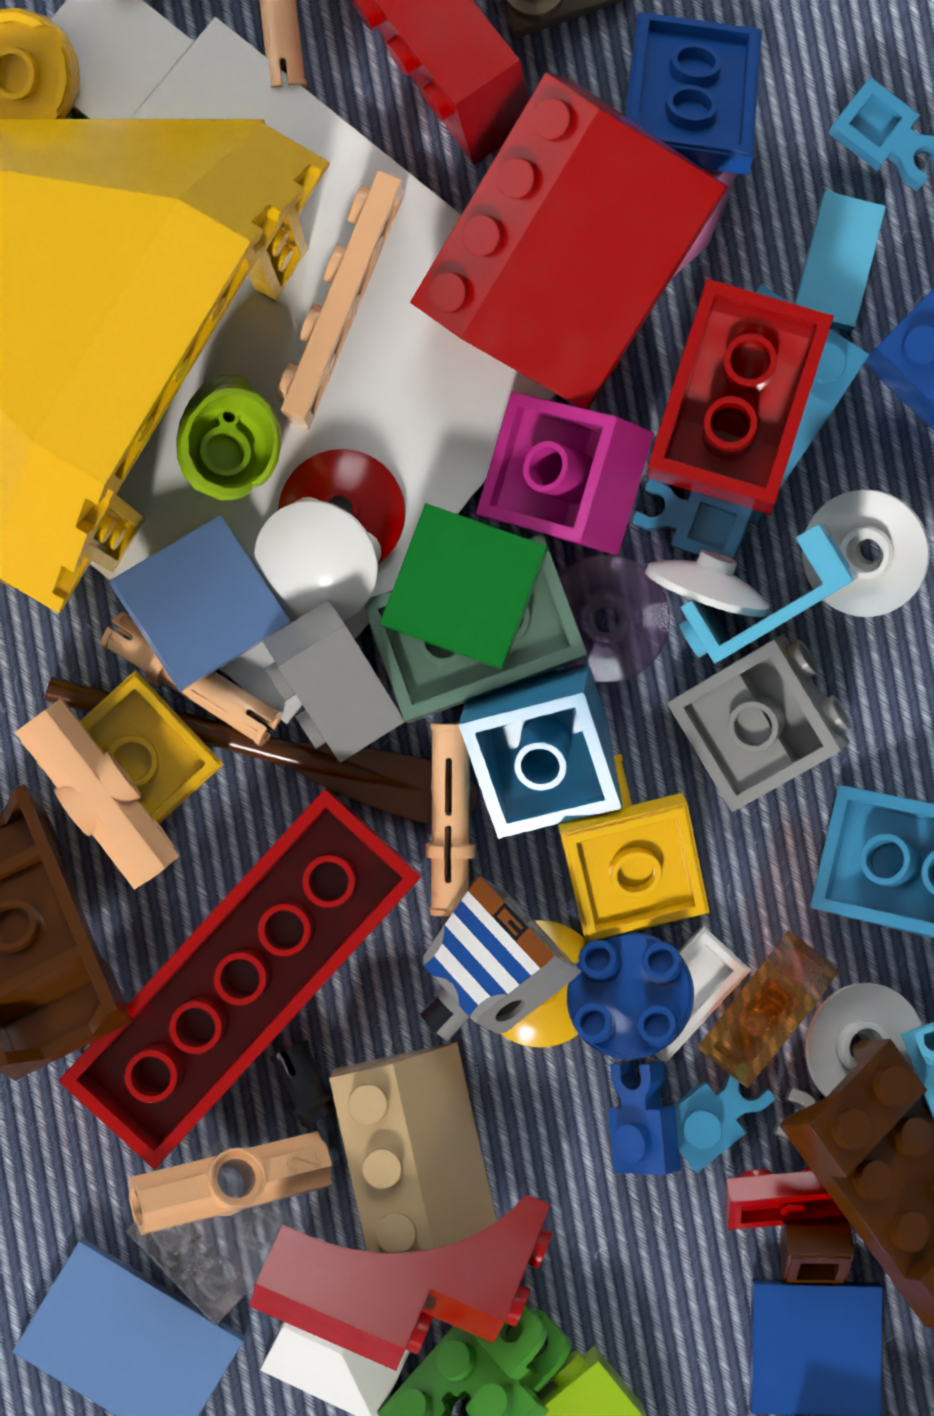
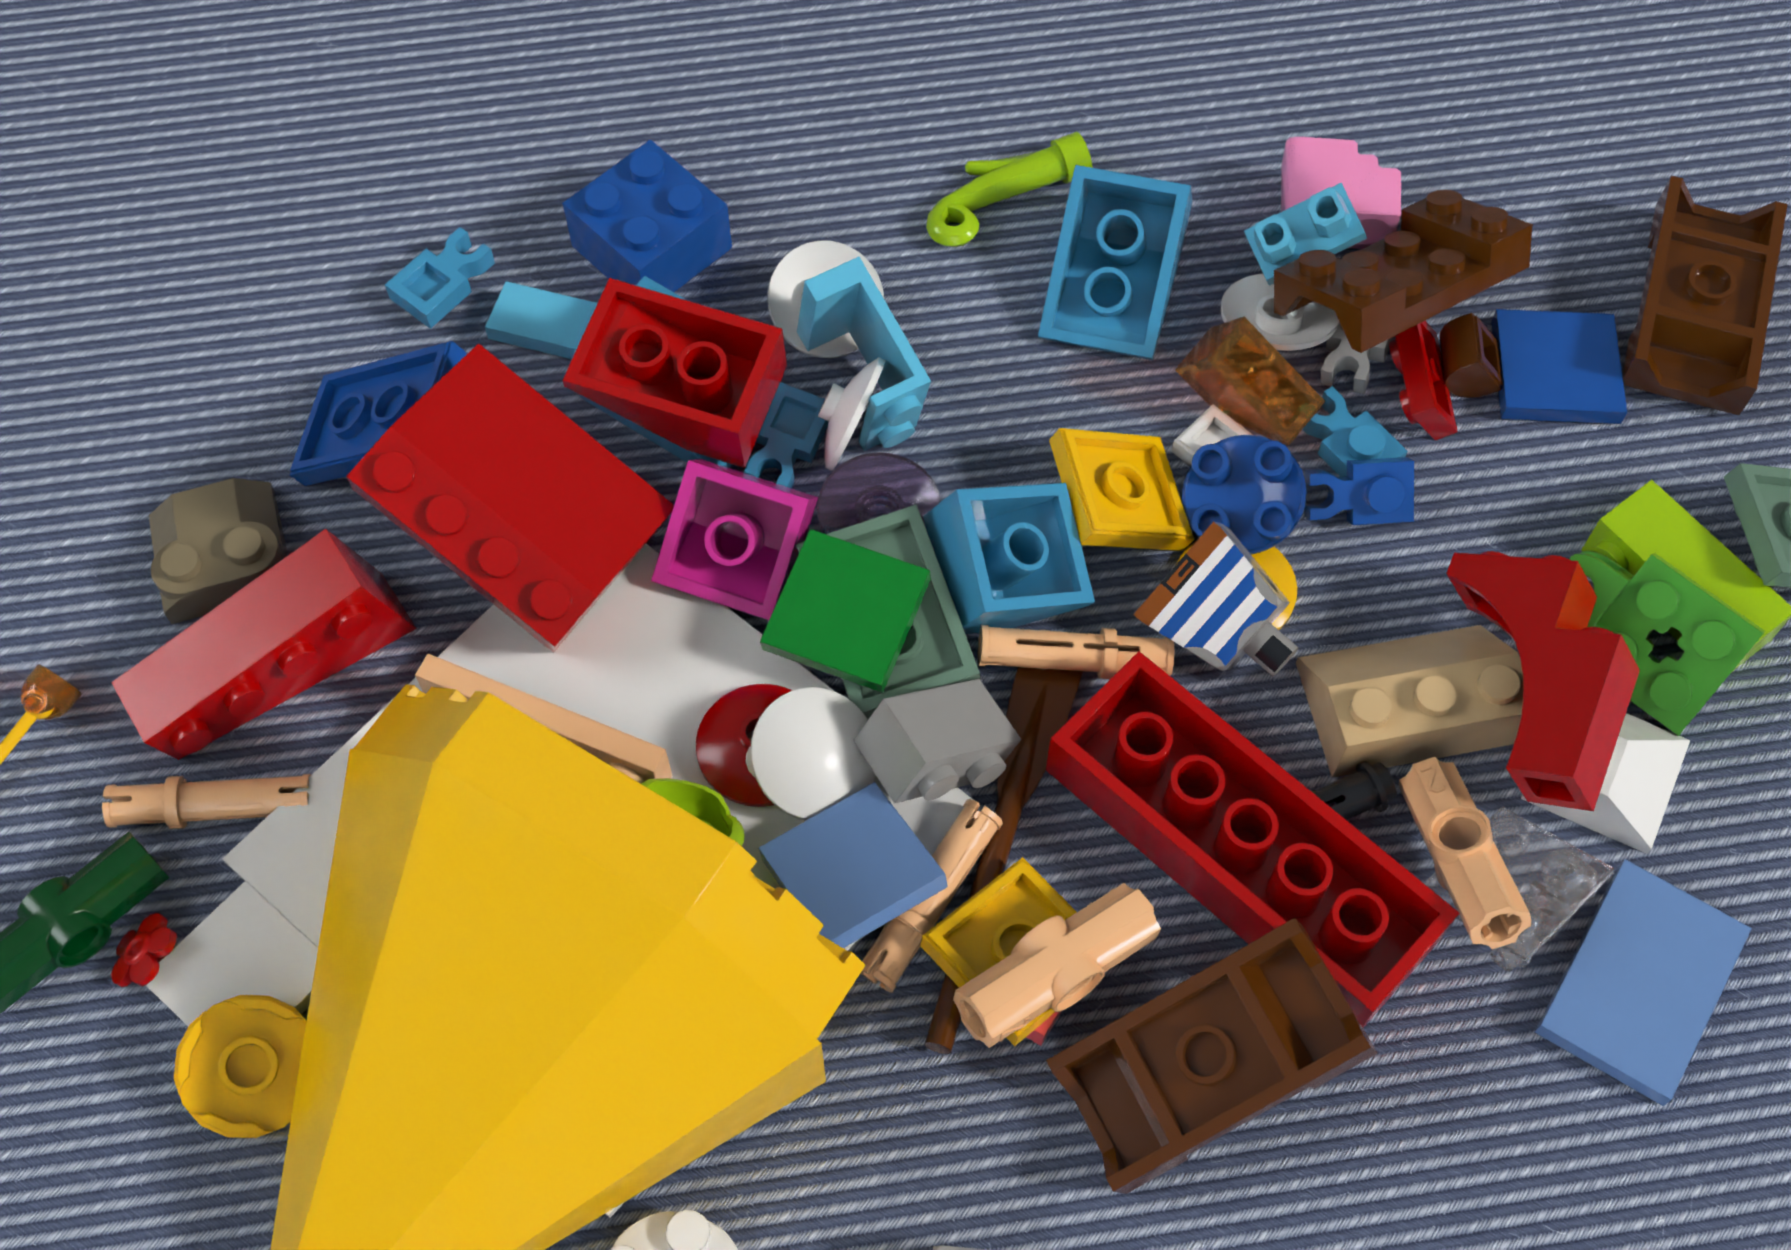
camera: 90 degrees left, 25 degrees down
(761, 721) = (984, 384): light grey plate -> none

